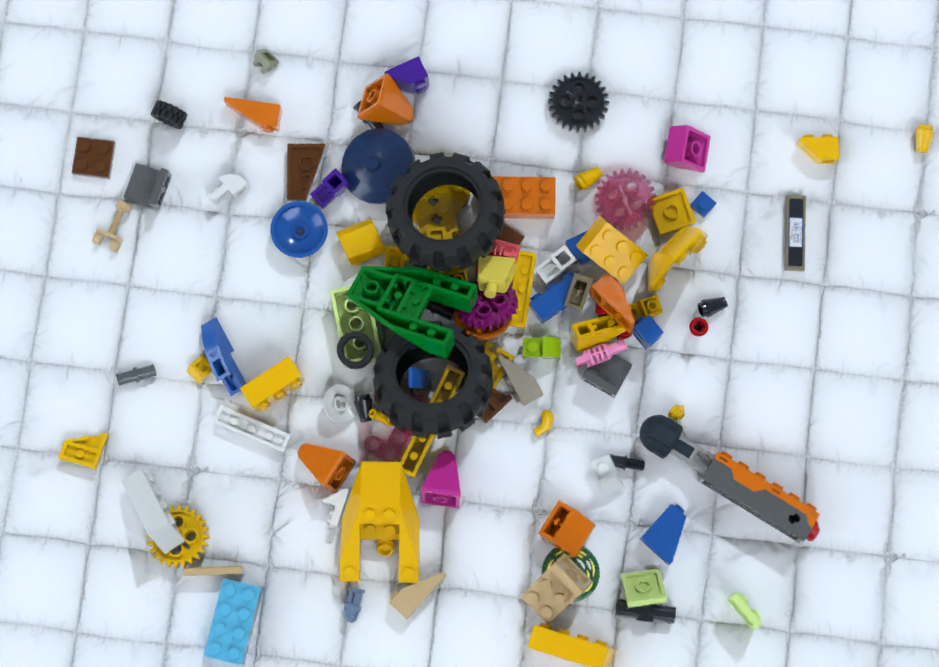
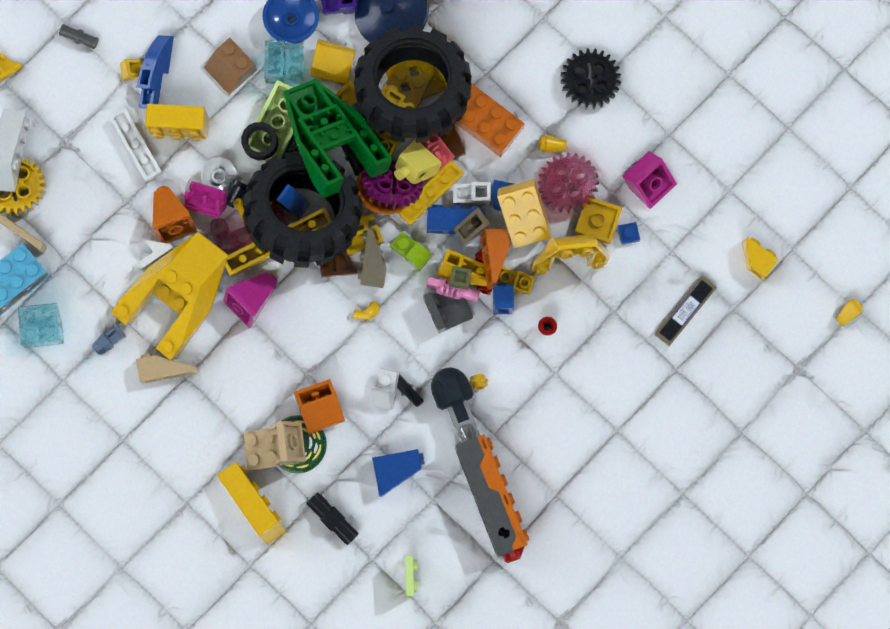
camera: 30 degrees right, 0 degrees up
(280, 307) = (230, 66): none -> medium nougat slope
(288, 634) = (40, 325): none -> clear light blue slope
(322, 271) = (283, 62): none -> clear light blue slope
(345, 430) = (205, 199): none -> dark pink hinge
(385, 547) = (167, 314): yellow plate -> none
(602, 340) = (460, 277): none -> olive tile
(643, 588) = (344, 498): yellowish green plate -> none
(711, 306) = (572, 319): black cone -> none

